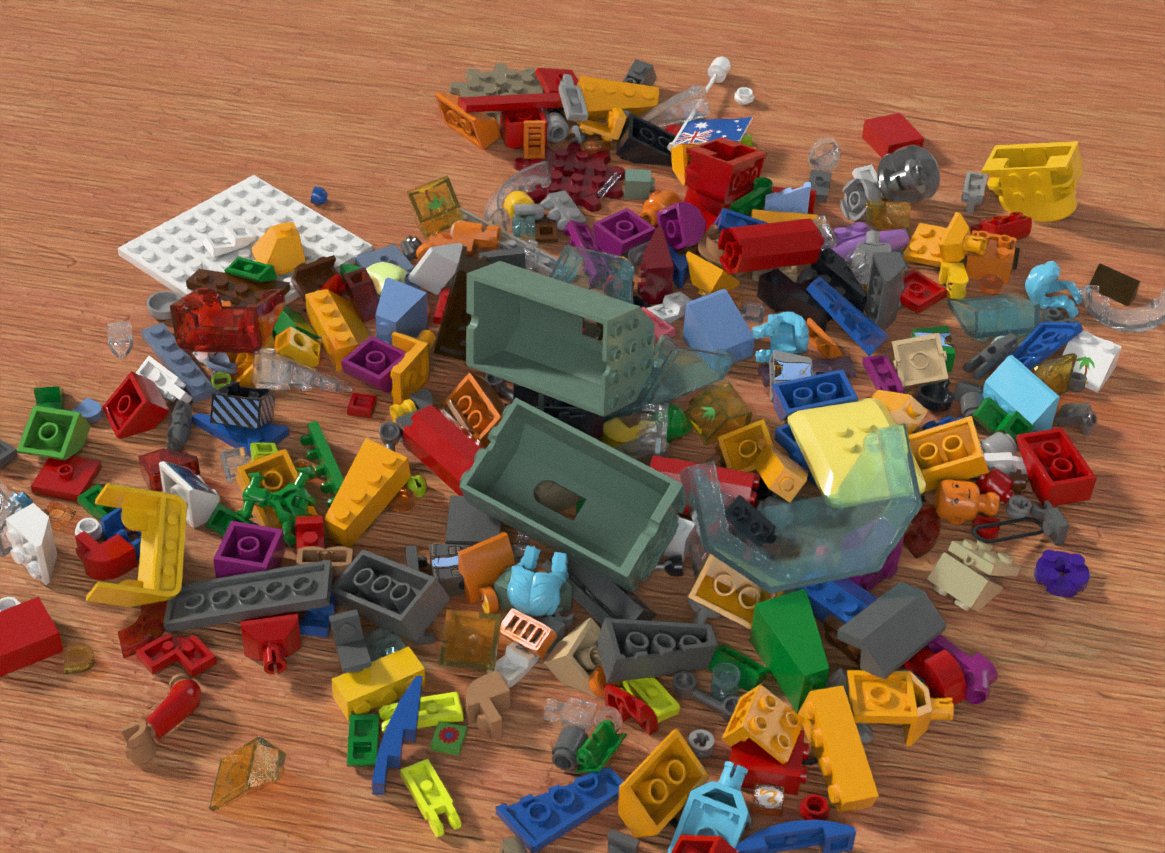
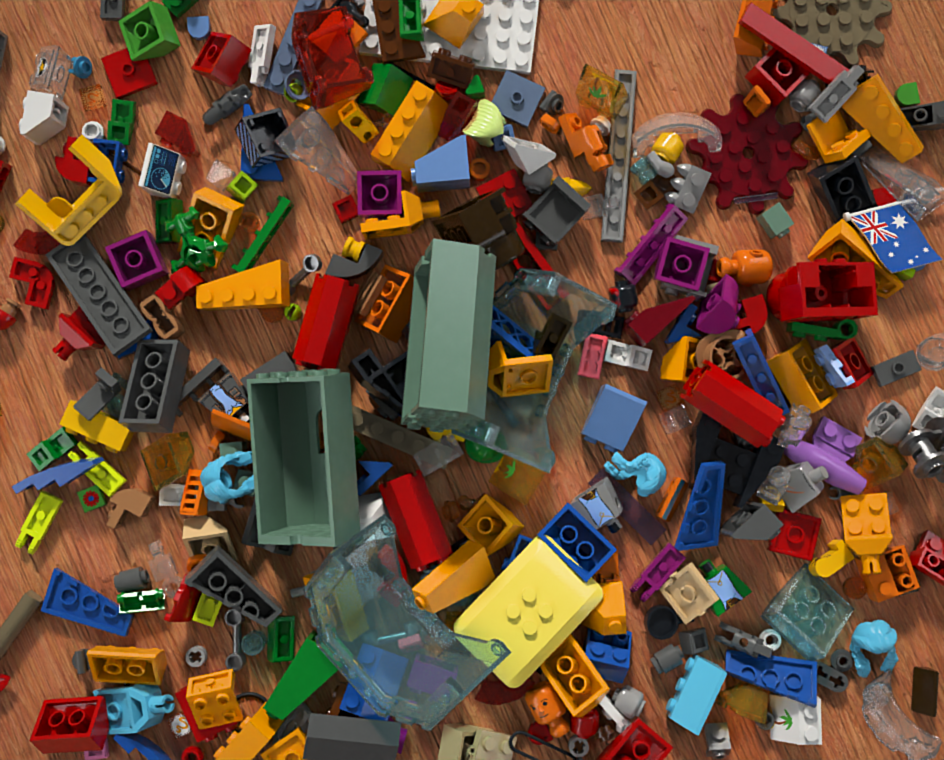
camera: 55 degrees right, 45 degrees up
(551, 78) = (882, 48): red plate -> none
(751, 522) = (374, 599): black hinge -> none
(996, 419) = (659, 694): green slope -> none

